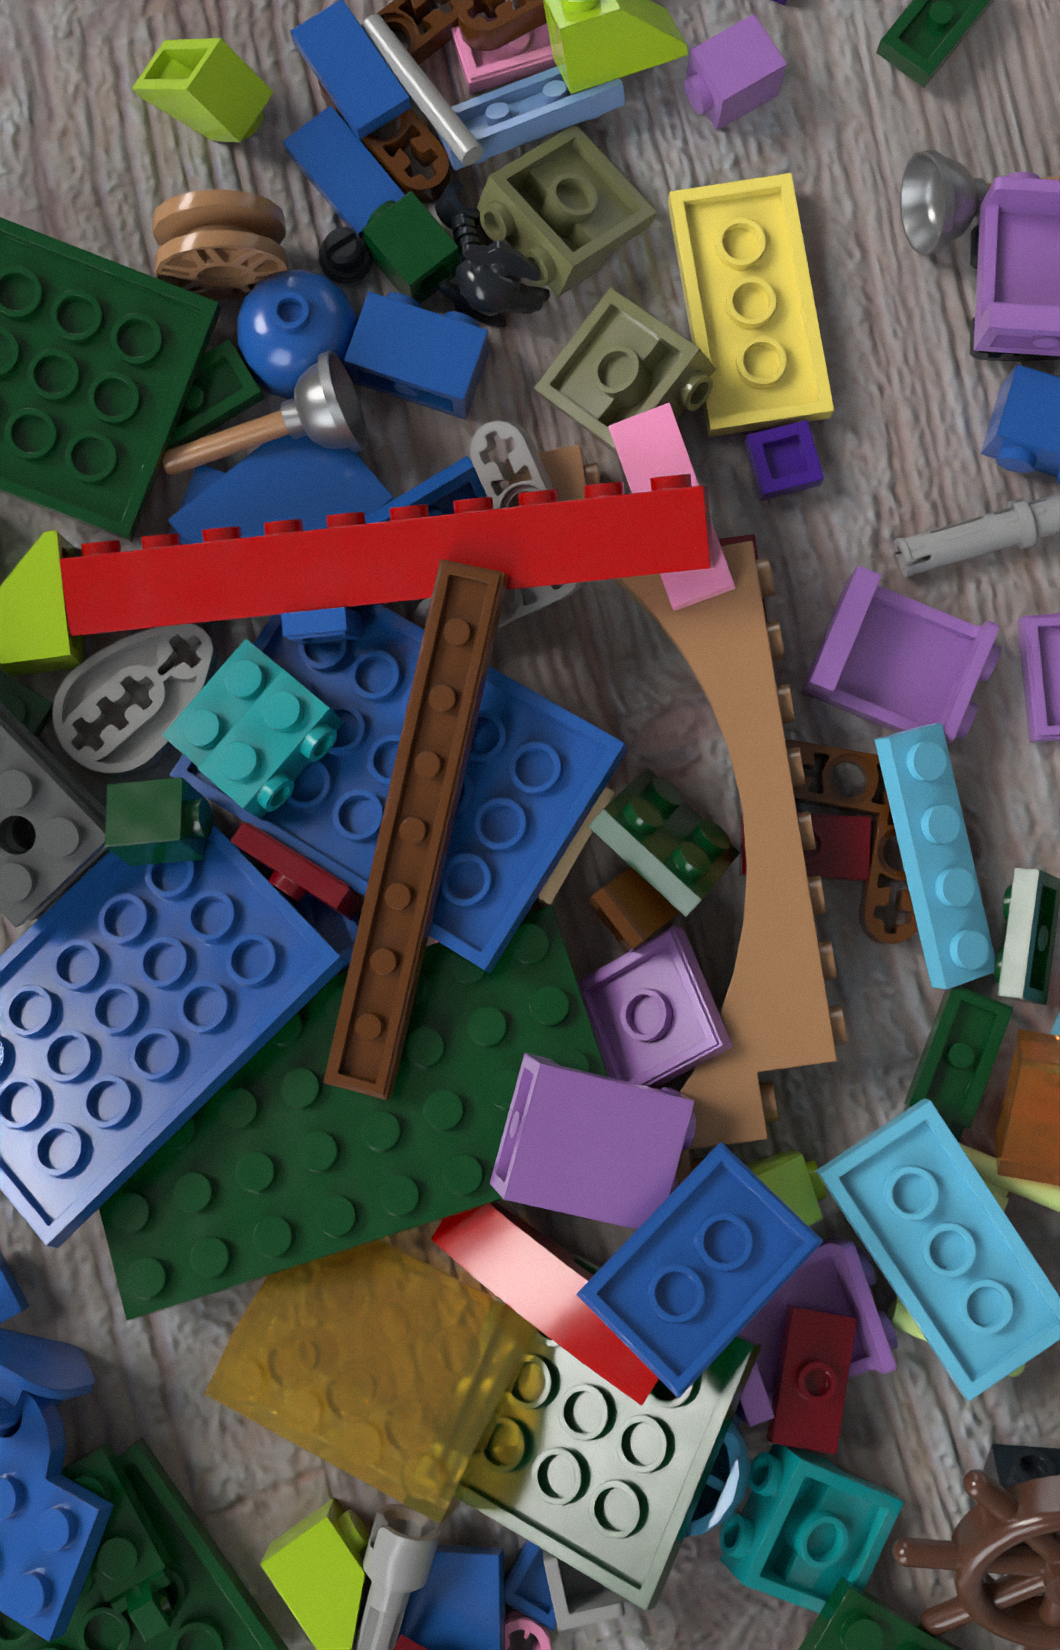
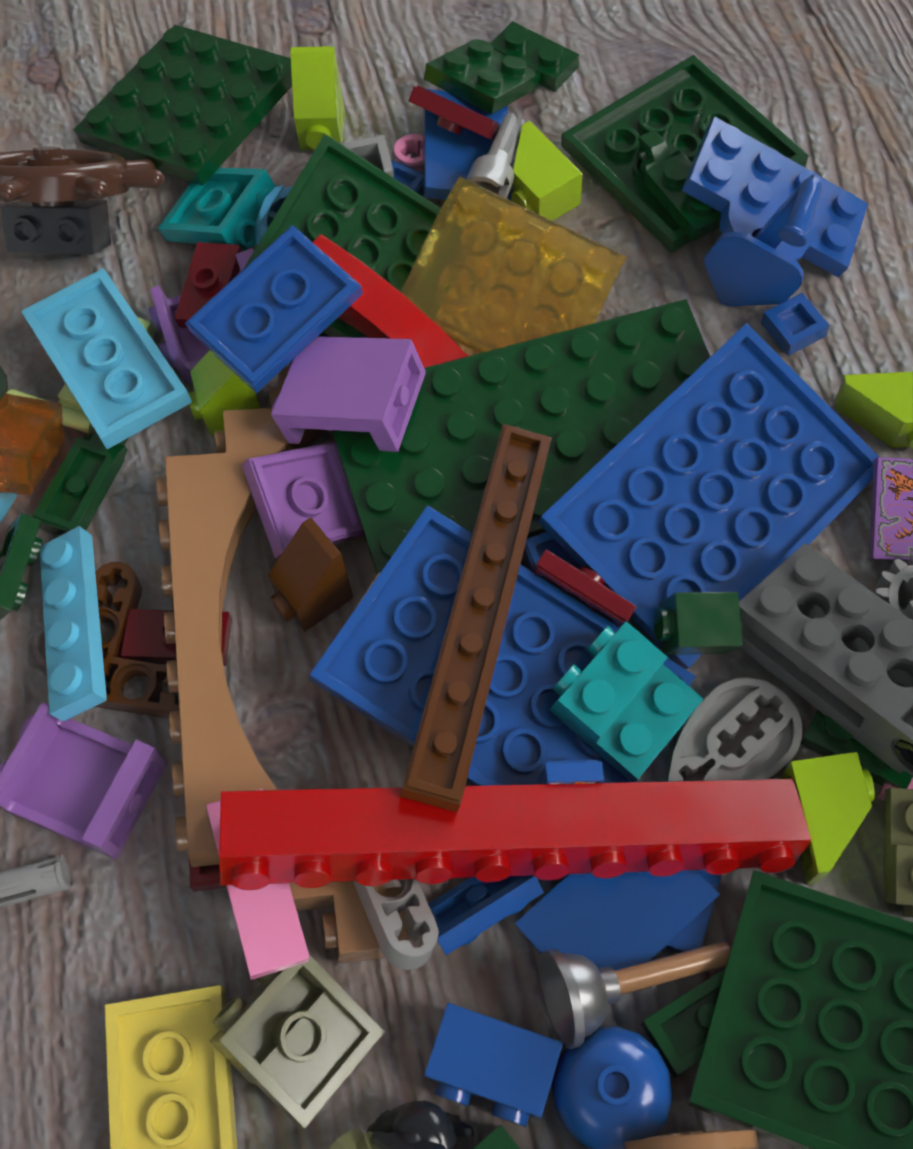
camera: 175 degrees left, 20 degrees down
(665, 840) = (284, 620): dark green plate -> none
(784, 460) = (157, 960): dark purple plate -> none

